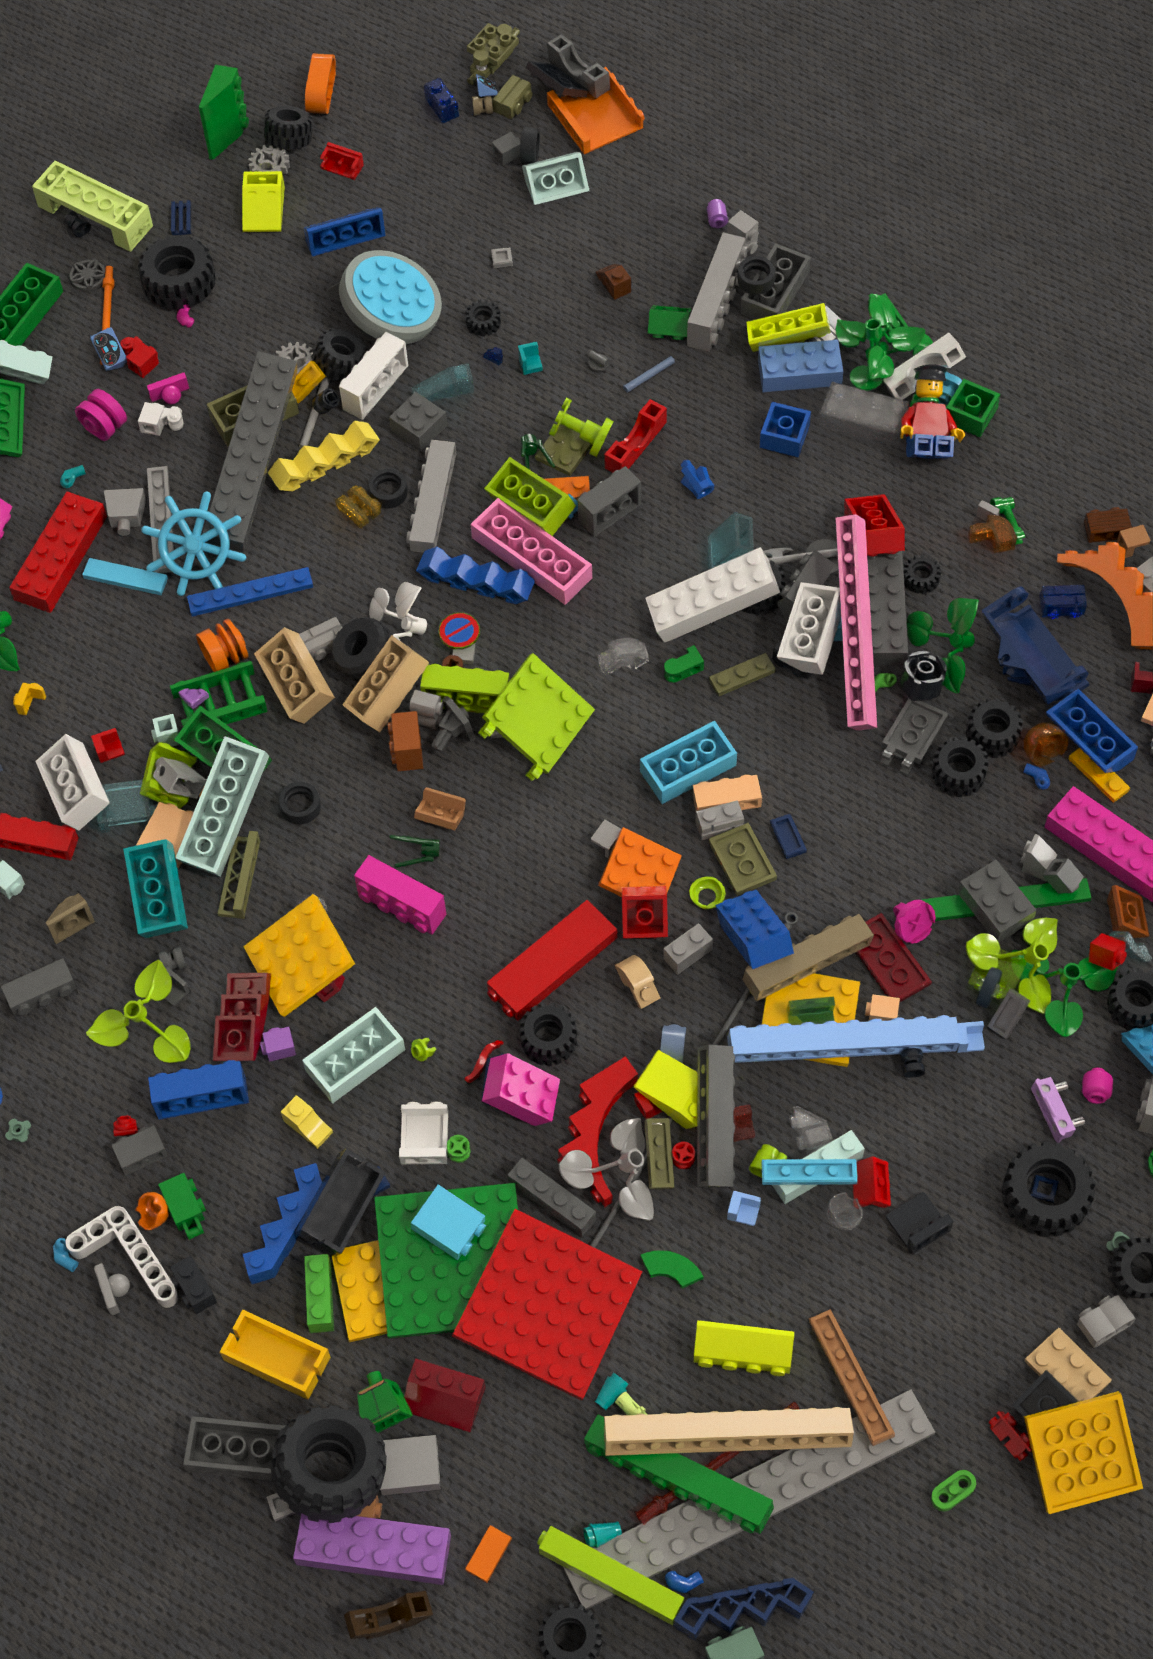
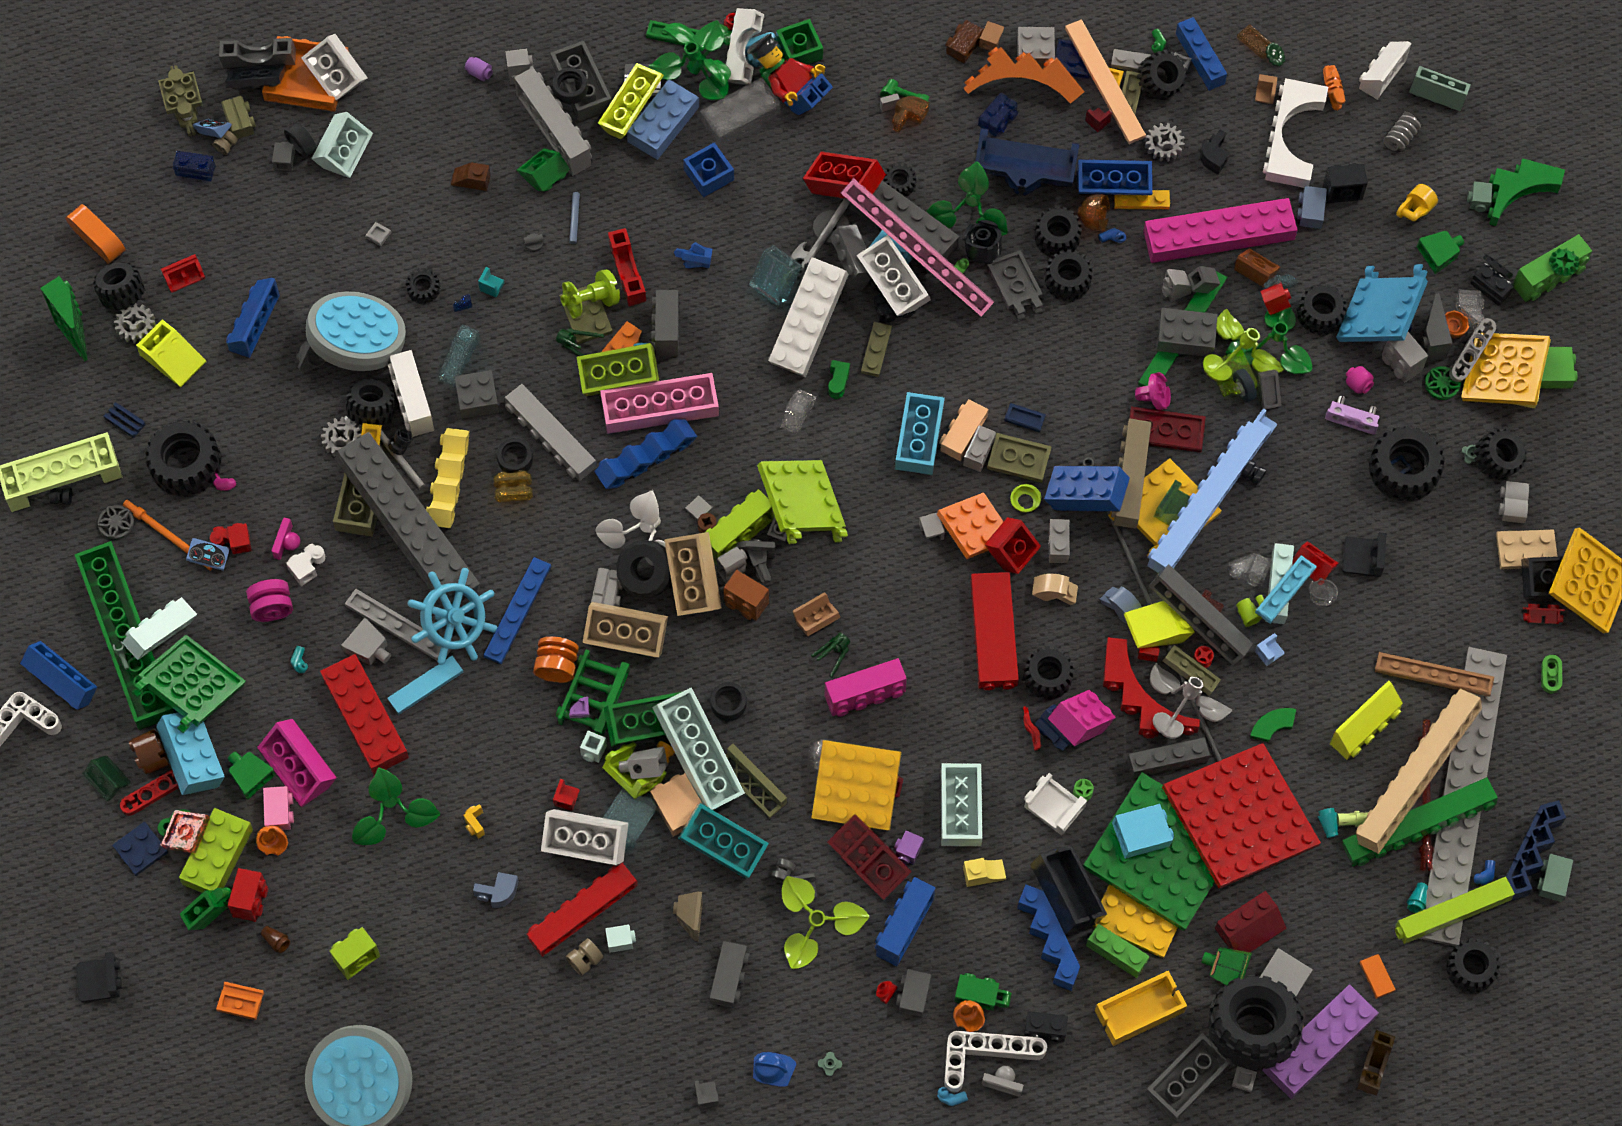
camera: 55 degrees left, 5 degrees up
(420, 1050) = (990, 761): lime plate -> none
(459, 631) = (681, 497): piece -> none
(615, 119) = (334, 67): none -> white slope
(882, 1008) = (1202, 460): light nougat brick -> none

